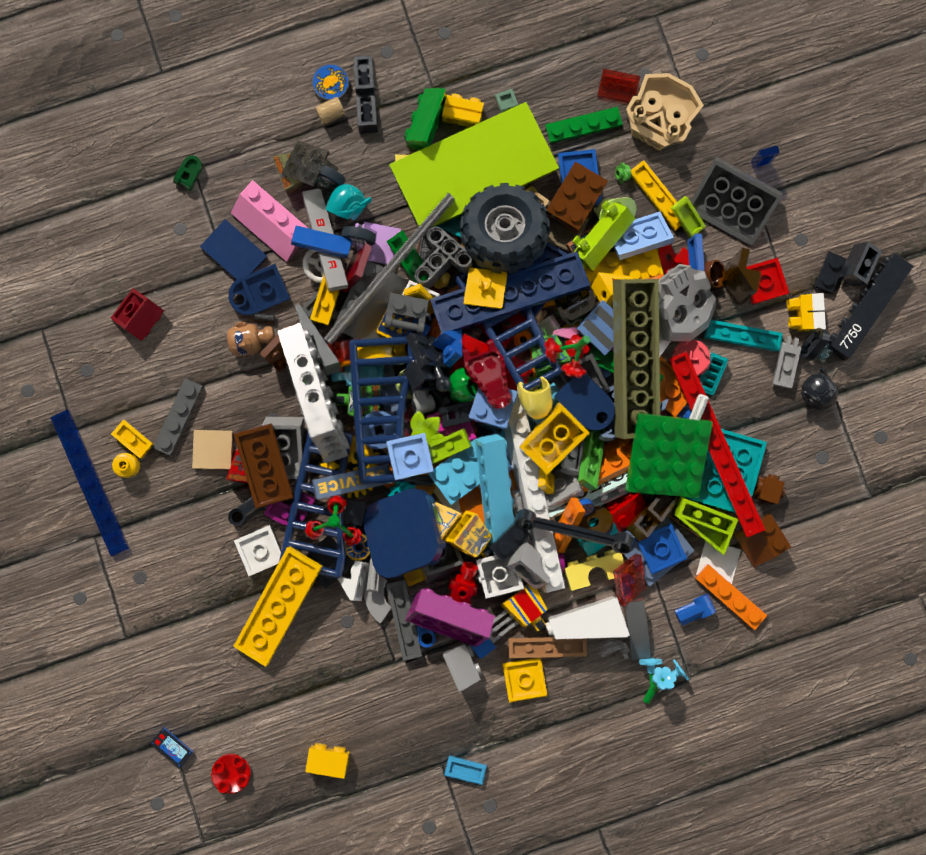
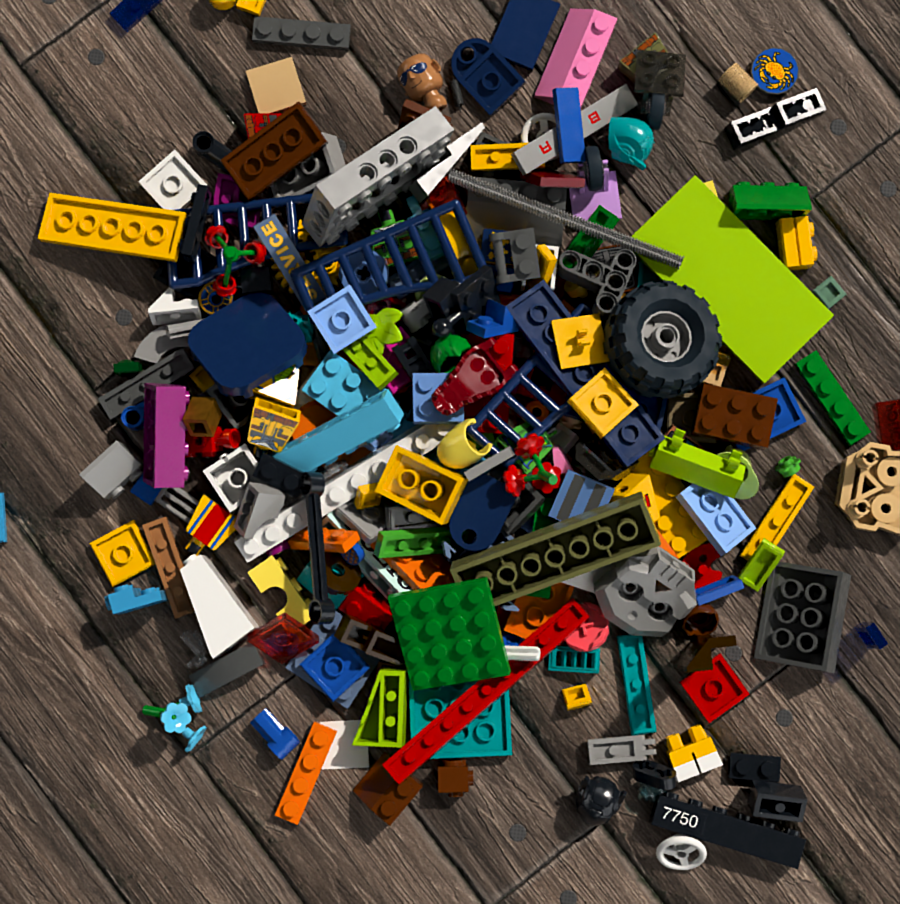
camera: 70 degrees right, 0 degrees up
(298, 542) = (195, 223): none -> black plate
(387, 629) = (127, 368): none -> dark green tile
(447, 584) = (202, 416): none -> pearl gold brick
(538, 286) = (602, 403): none -> yellow plate
(555, 382) = (489, 463): none -> light grey tile
(563, 685) = (130, 599): none -> dark azure plate
(739, 381) = (576, 697): none -> yellow slope
(871, 344) = (680, 848): none -> white piece

